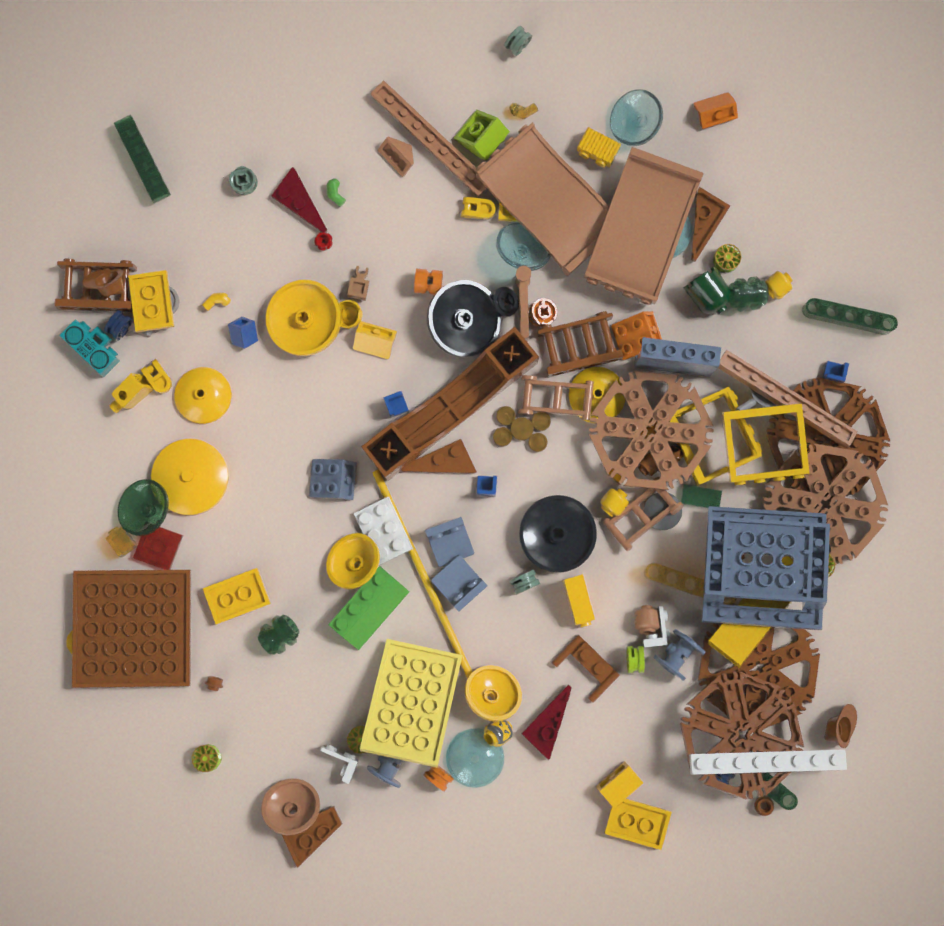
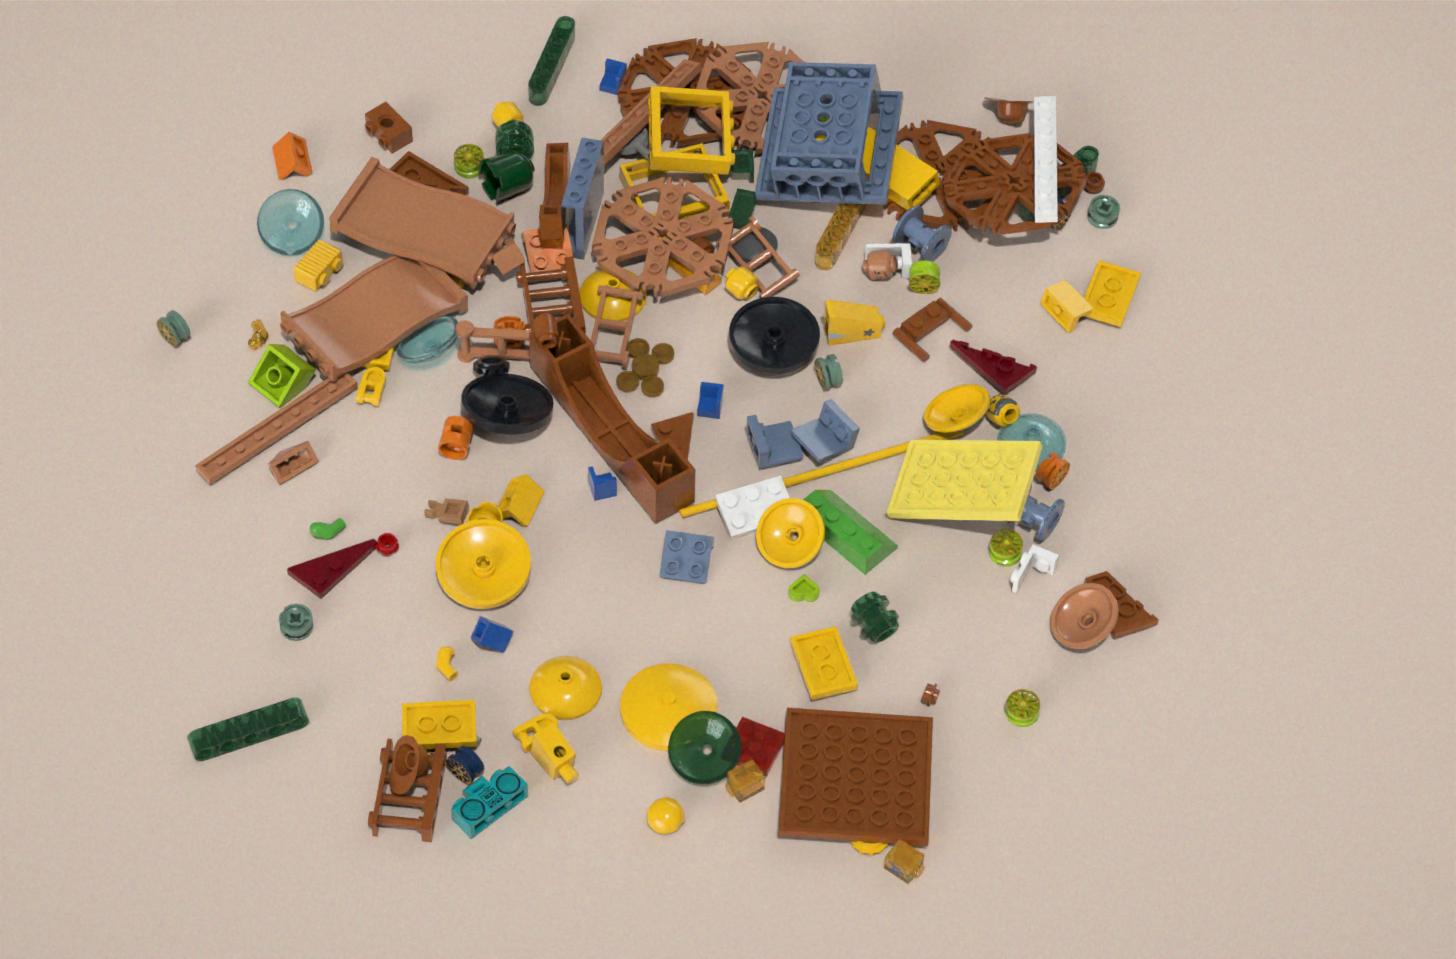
camera: 90 degrees left, 30 degrees down
(57, 670) = (904, 862): none -> clear yellow brick
(90, 483) = (665, 815): none -> yellow hair
(309, 576) = (804, 589): none -> lime tile
(511, 339) = (546, 330): none -> dark orange brick
(613, 305) = (508, 257): none -> nougat panel
(704, 334) = (557, 175): none -> dark orange arch
(730, 815) = (1103, 211): none -> sand green wheel
(746, 493) = (744, 163): none -> clear green panel
(749, 194) = (388, 127): none -> dark orange brick

